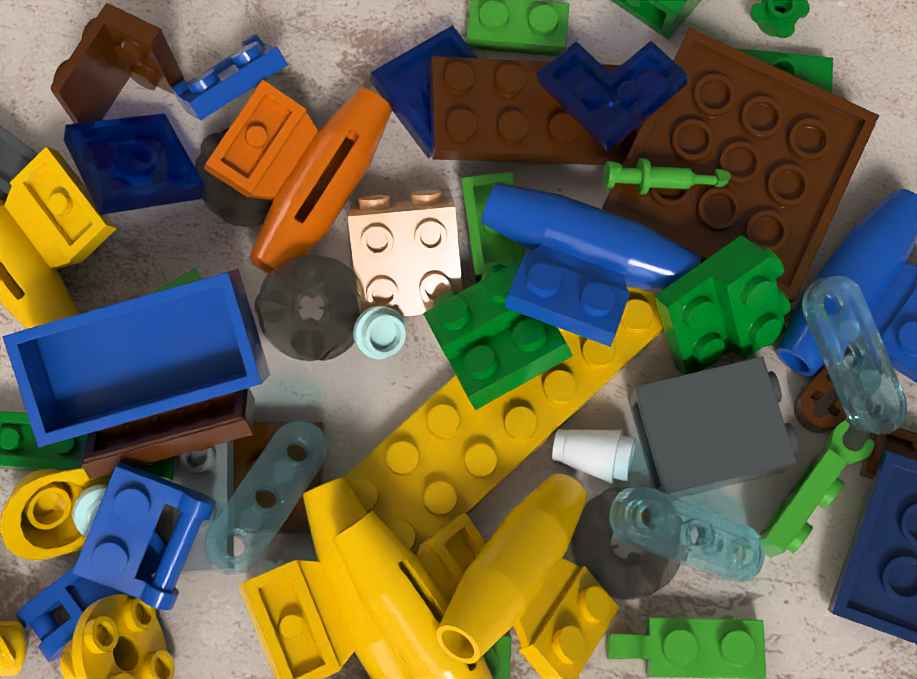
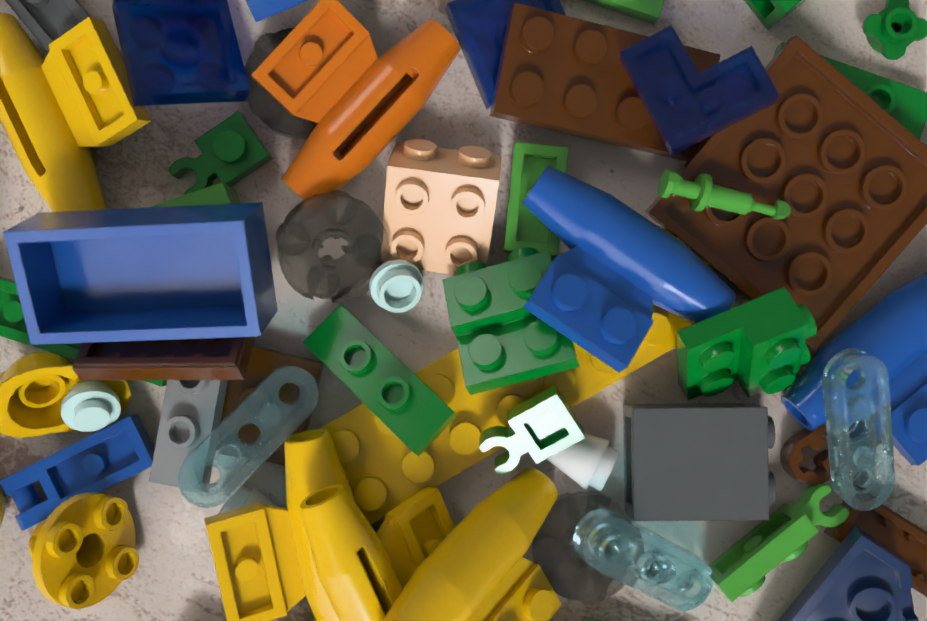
camera: 10 degrees right, 15 degrees up
(125, 531) = (108, 435): blue plate -> none
(189, 246) = (228, 152): none -> green plate
(384, 420) = (380, 380): none -> green plate
(550, 424) = (537, 426): none -> plate

